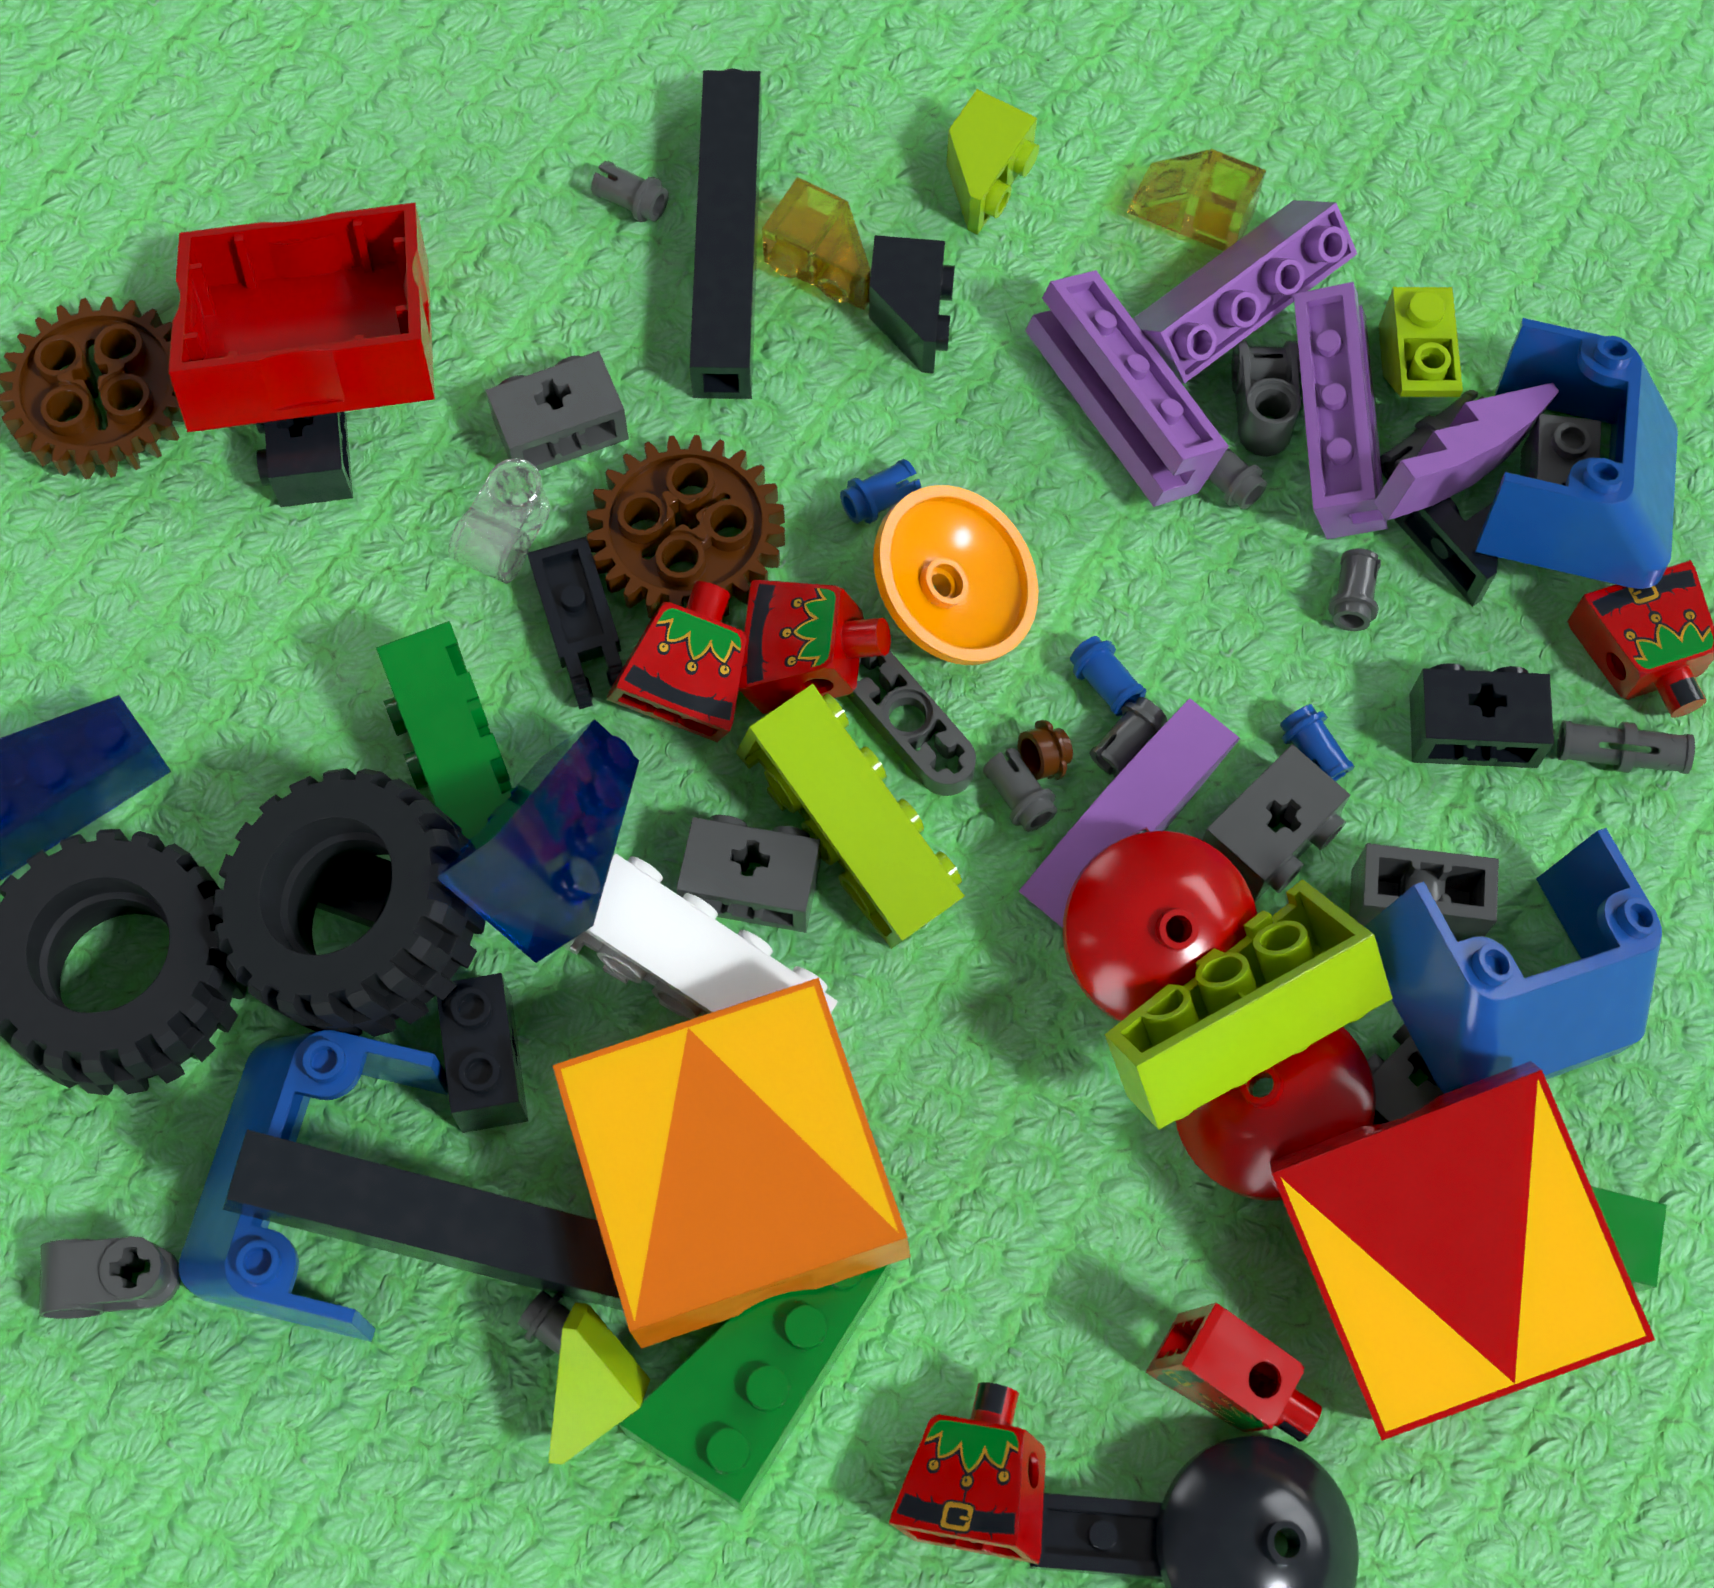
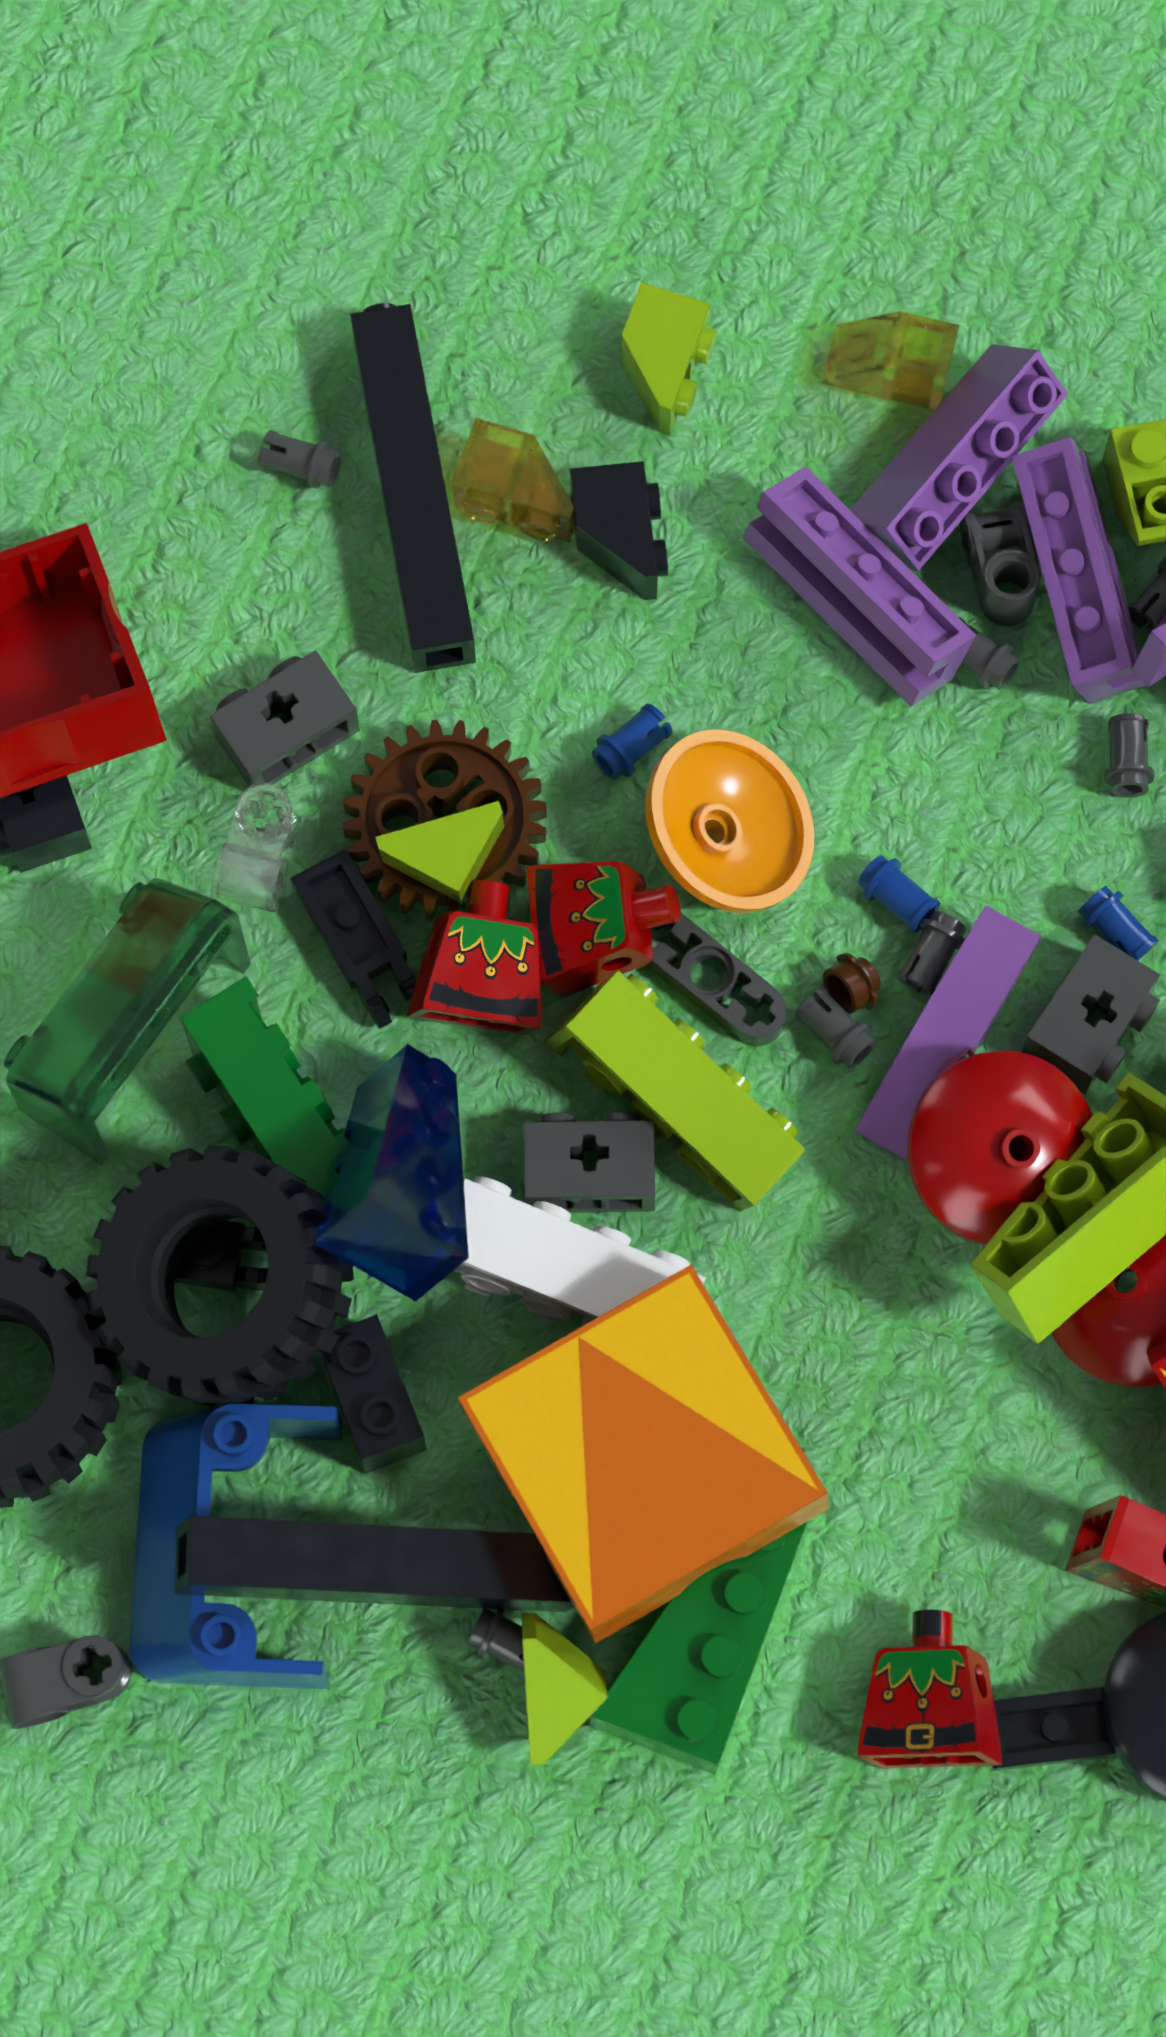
camera: 10 degrees left, 5 degrees up
(322, 627) = (119, 1007): none -> clear green windscreen
(675, 545) = (445, 850): none -> lime slope

